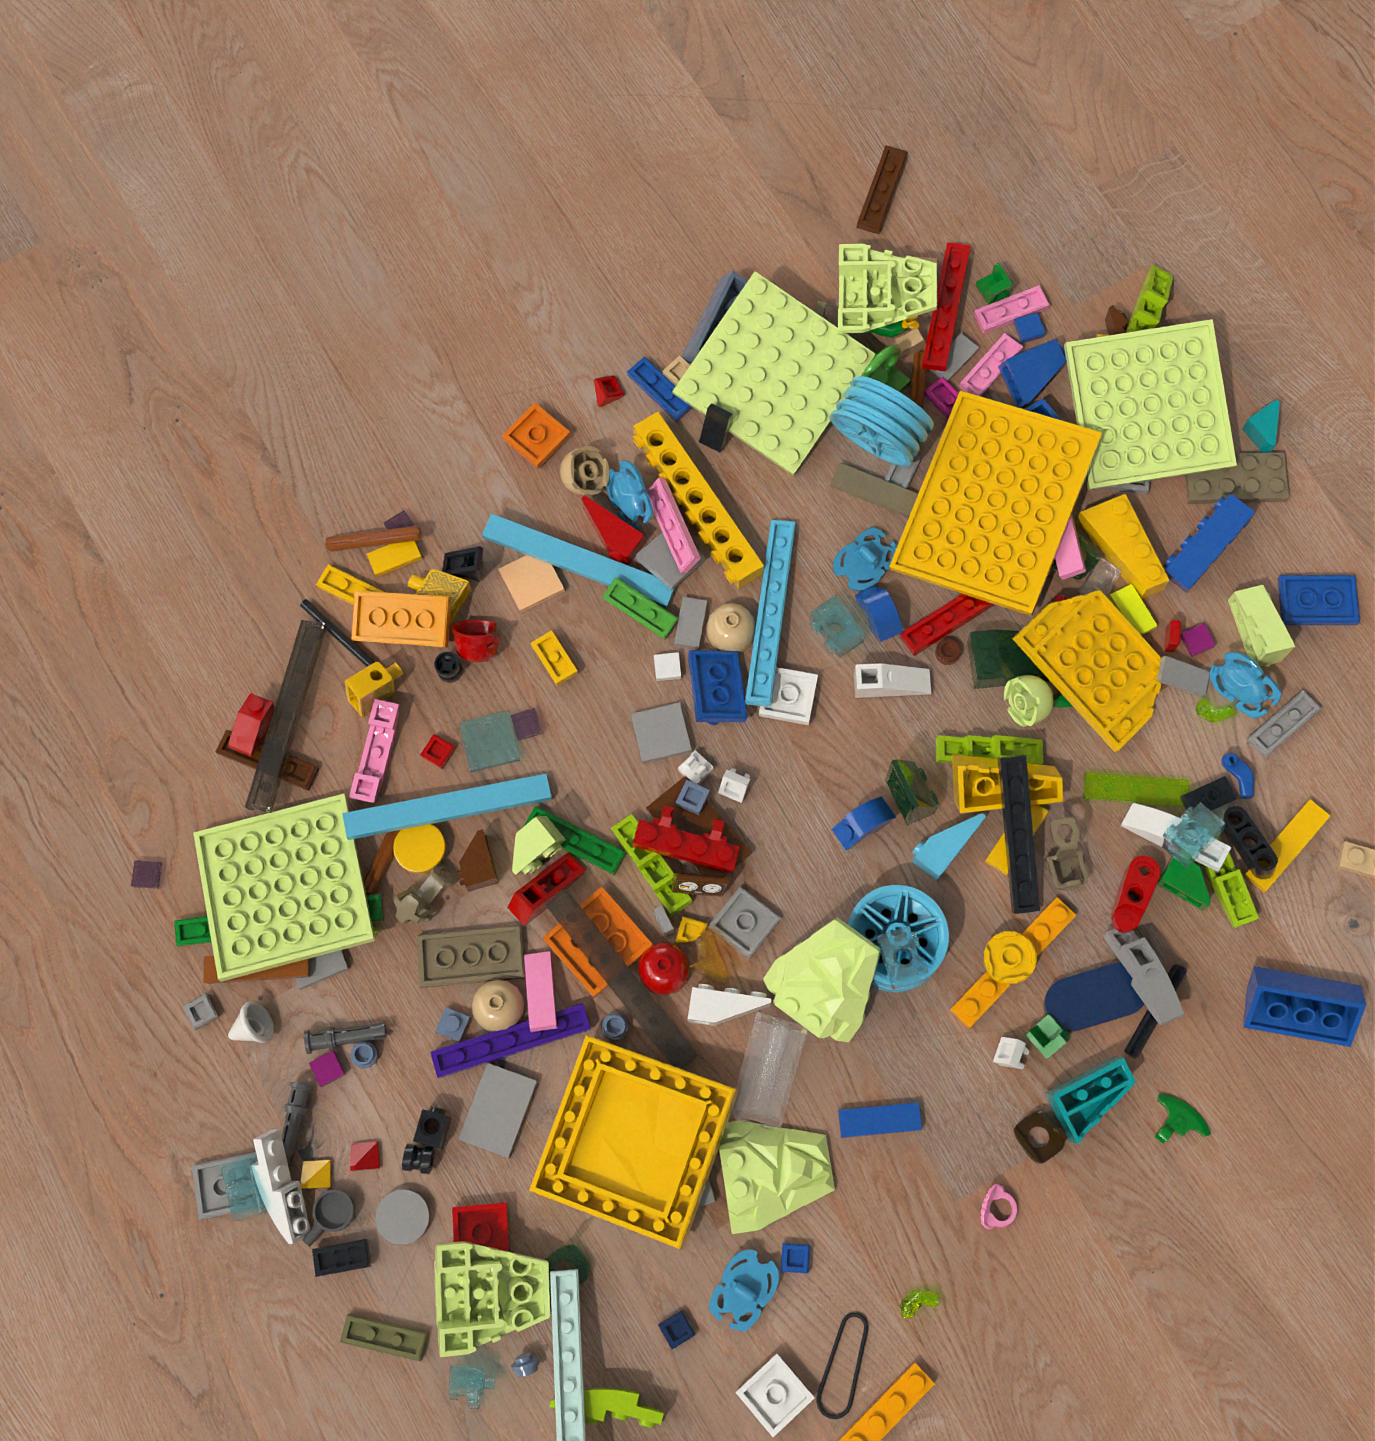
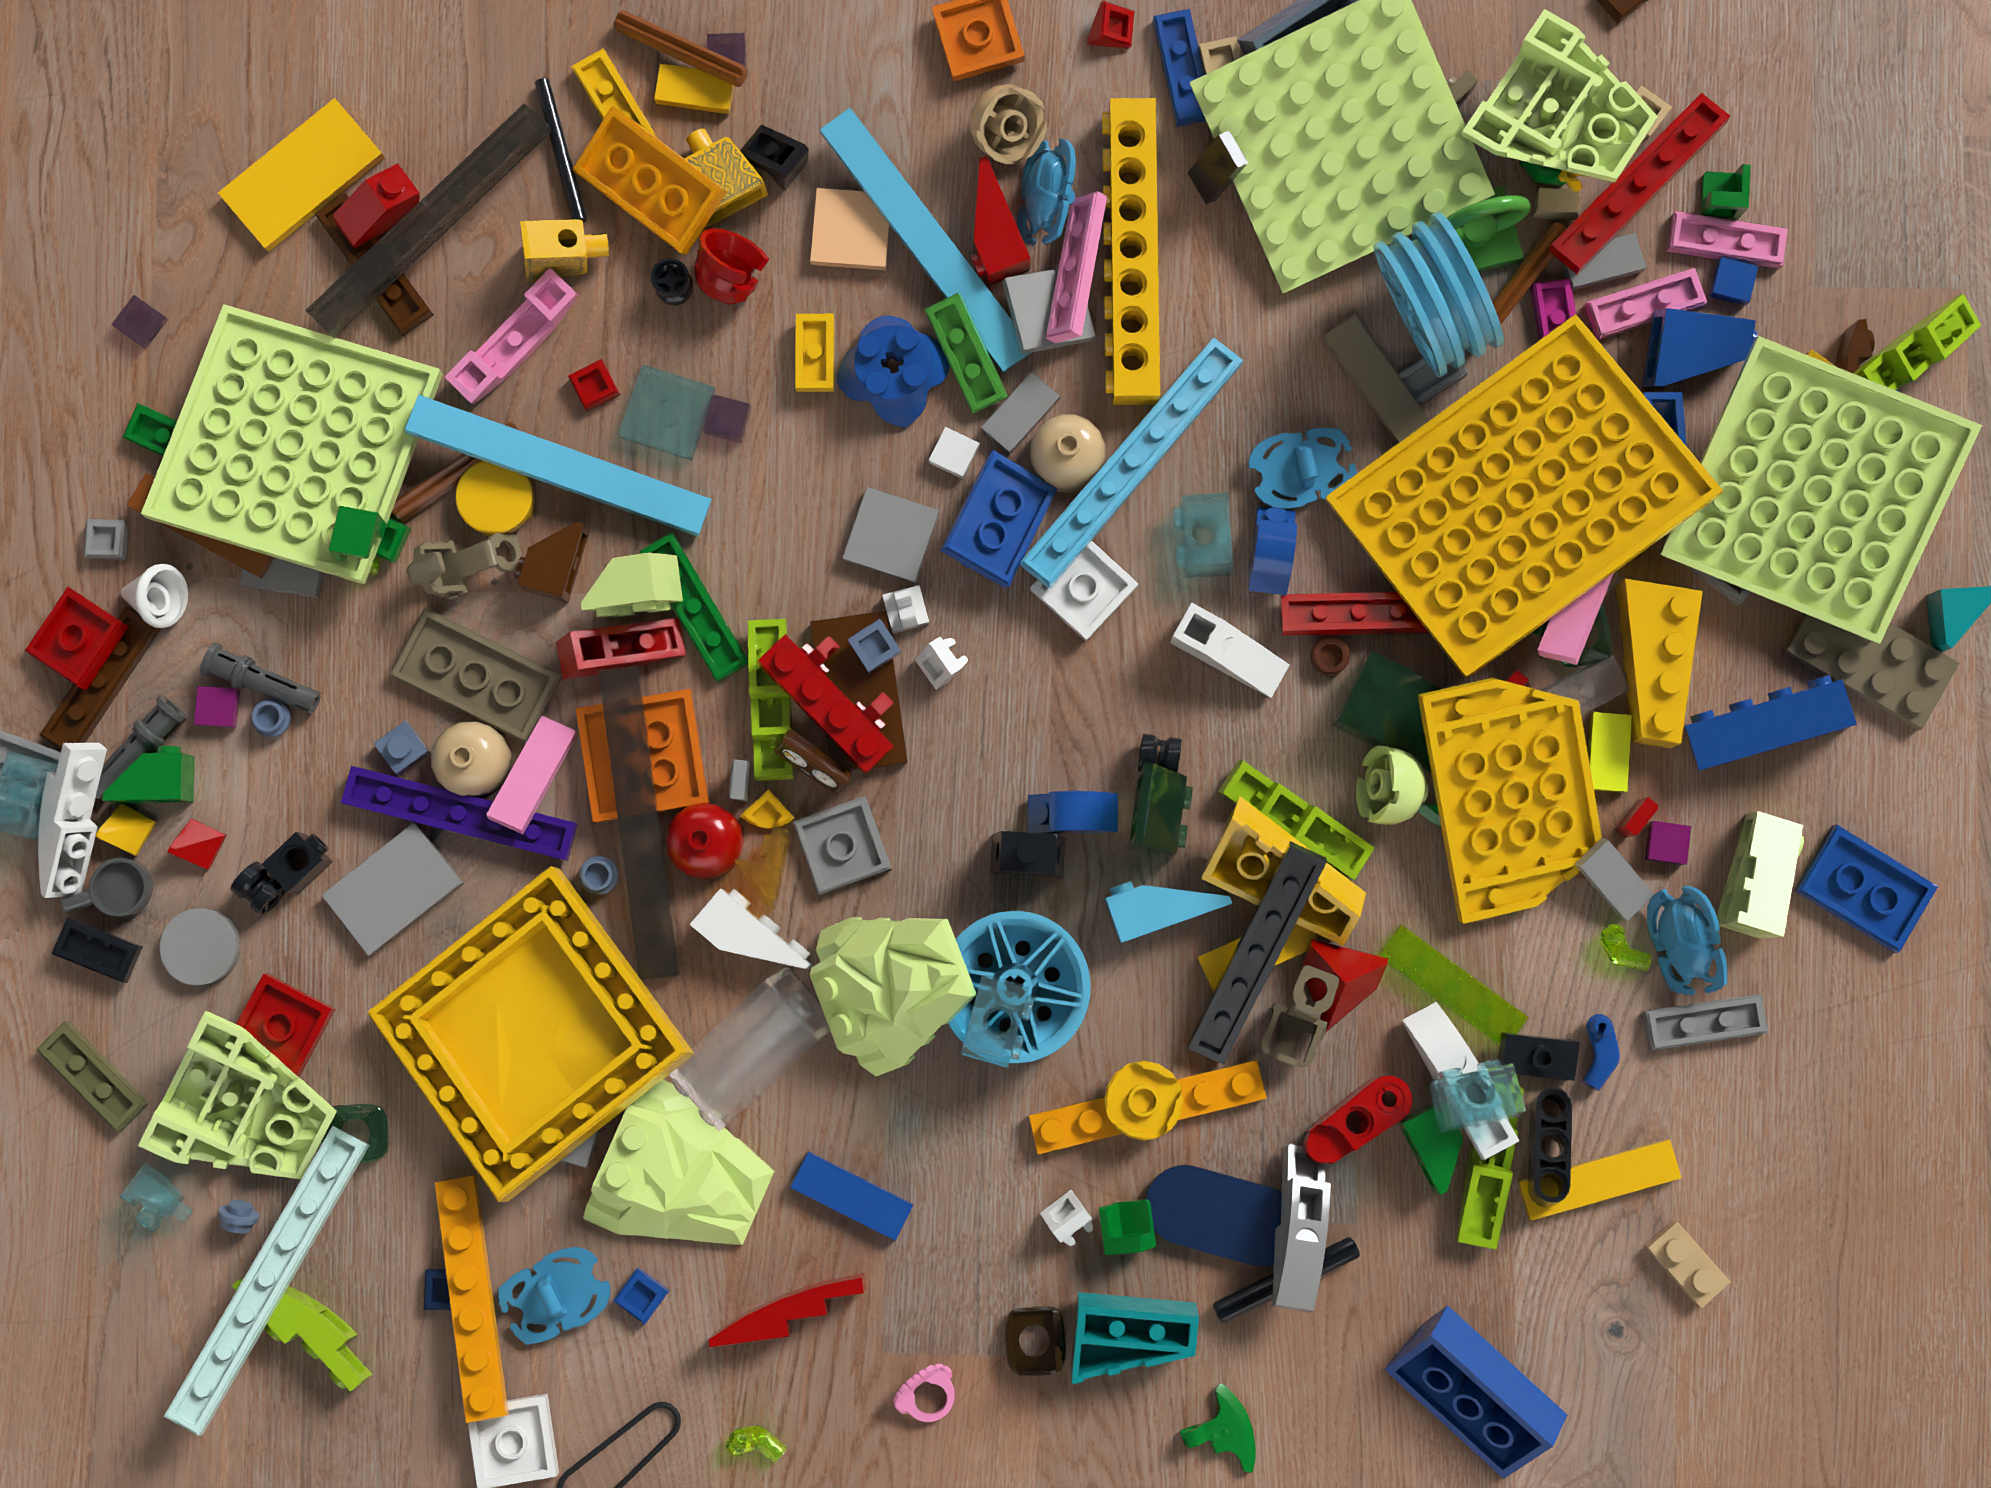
camera: 30 degrees right, 10 degrees up
(193, 735) = (301, 175): none -> yellow tile
(218, 1079) = (76, 638): none -> red tile
(247, 1096) = (84, 709): none -> reddish brown tile
(316, 1133) = (155, 779): none -> green slope
(355, 910) = (355, 533): none -> green panel
(616, 653) = (899, 395): none -> blue brick
(697, 1324) = (471, 1299): none -> light orange plate
(852, 861) = (1027, 854): none -> black torso
(881, 1219) = (774, 1317): none -> red slope
(884, 759) = (1168, 754): none -> black wheel
(1084, 814) = (1357, 975): none -> red slope

